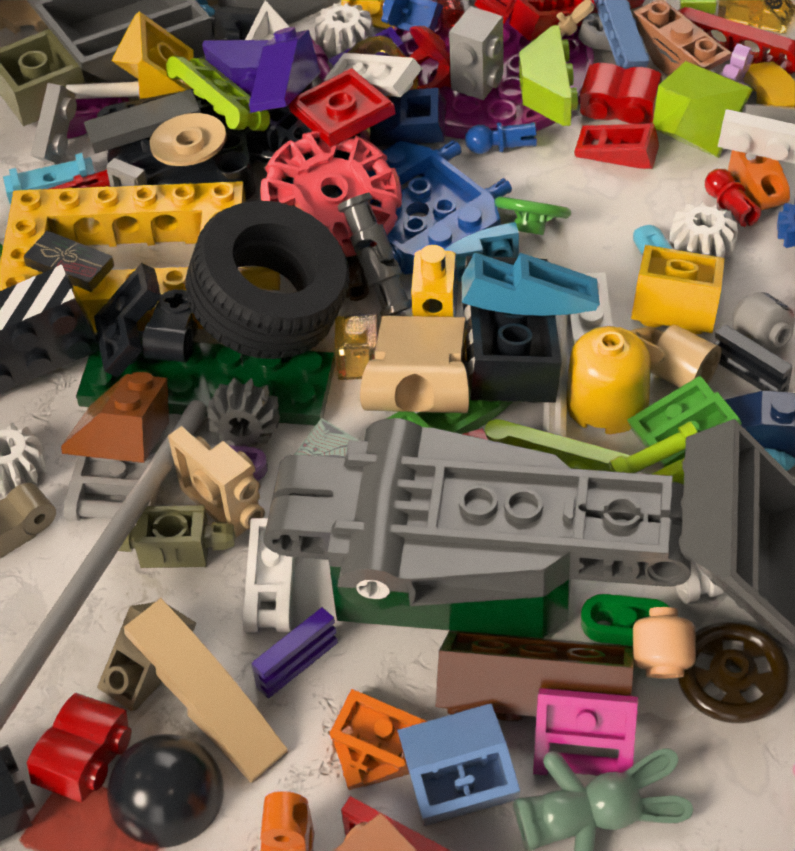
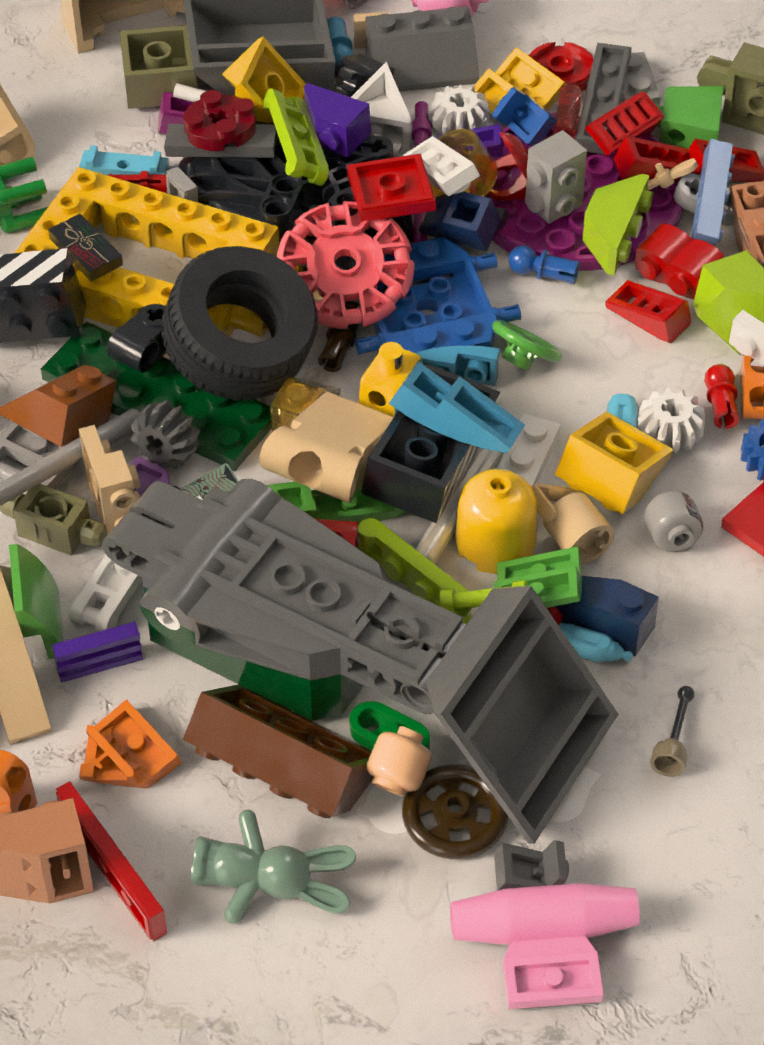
camera: 20 degrees right, 0 degrees up
(53, 124) = (146, 116): light grey plate -> none
(119, 317) = (105, 313): black plate -> none
(150, 94) = (219, 121): none -> dark red plate
(188, 139) = (244, 171): tan dish -> none
(207, 623) = (35, 598): none -> bright green slope
(284, 69) = (358, 135): dark purple slope -> none
(378, 262) = (353, 329): dark grey piece -> none
(459, 764) = (171, 793): medium blue slope -> none
(585, 721) = (294, 799): dark pink plate -> none
(752, 361) = (640, 552): black tile -> none

